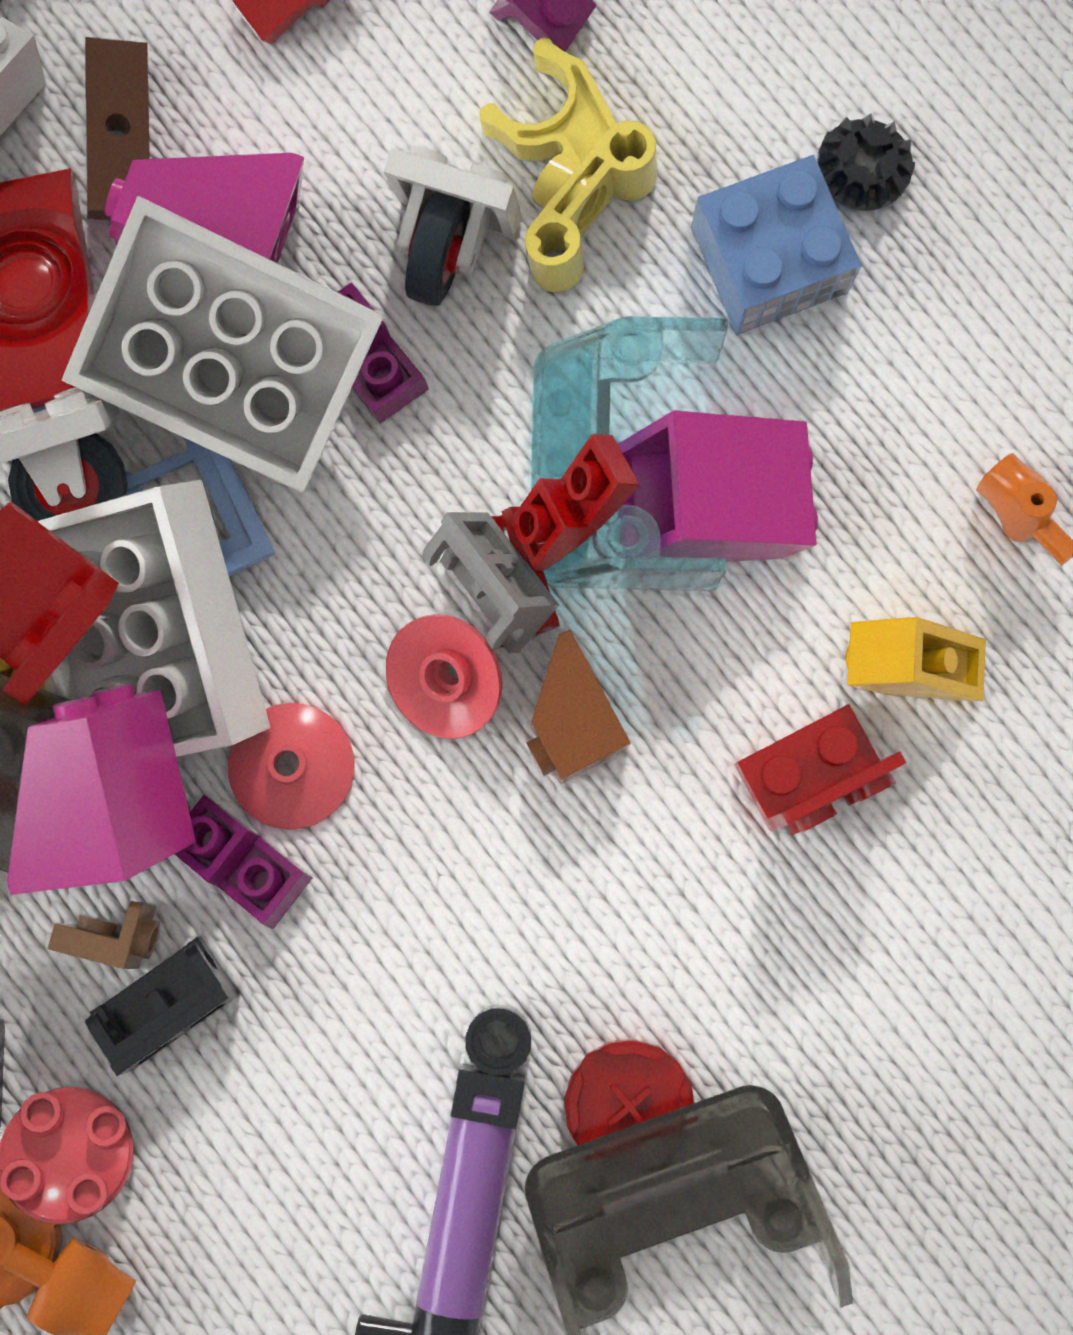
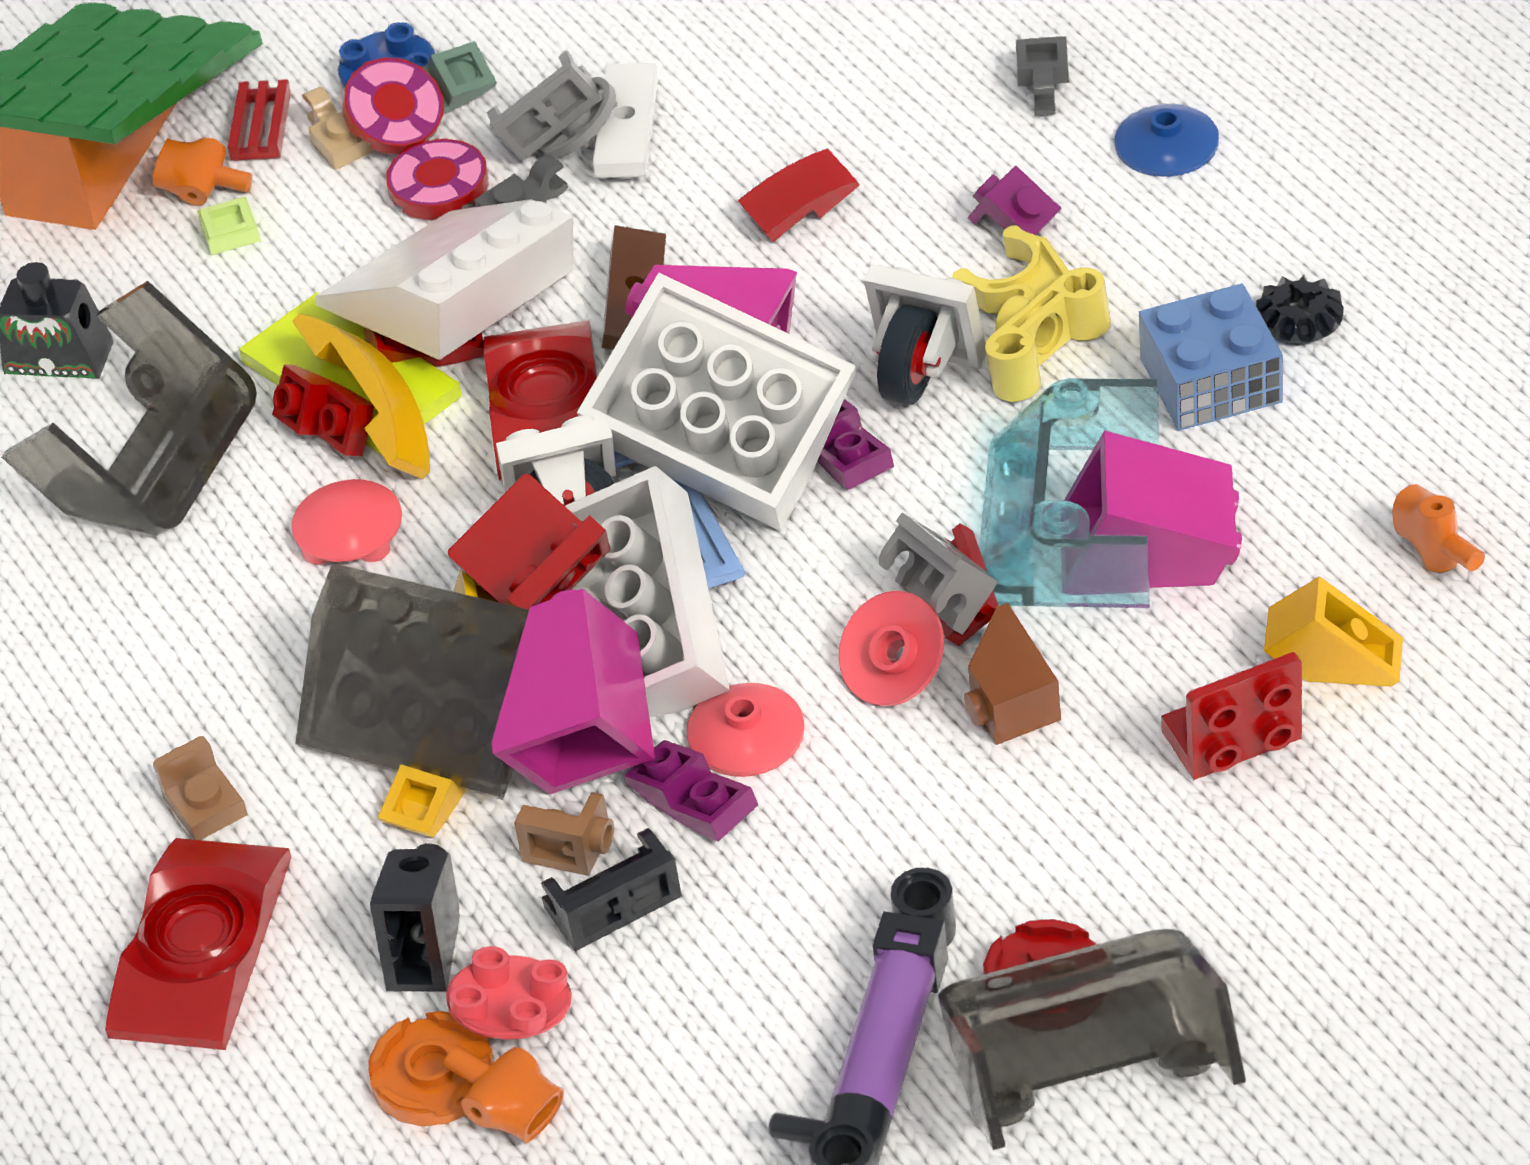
camera: 10 degrees right, 35 degrees down
(569, 510) = (1002, 512): red slope -> none

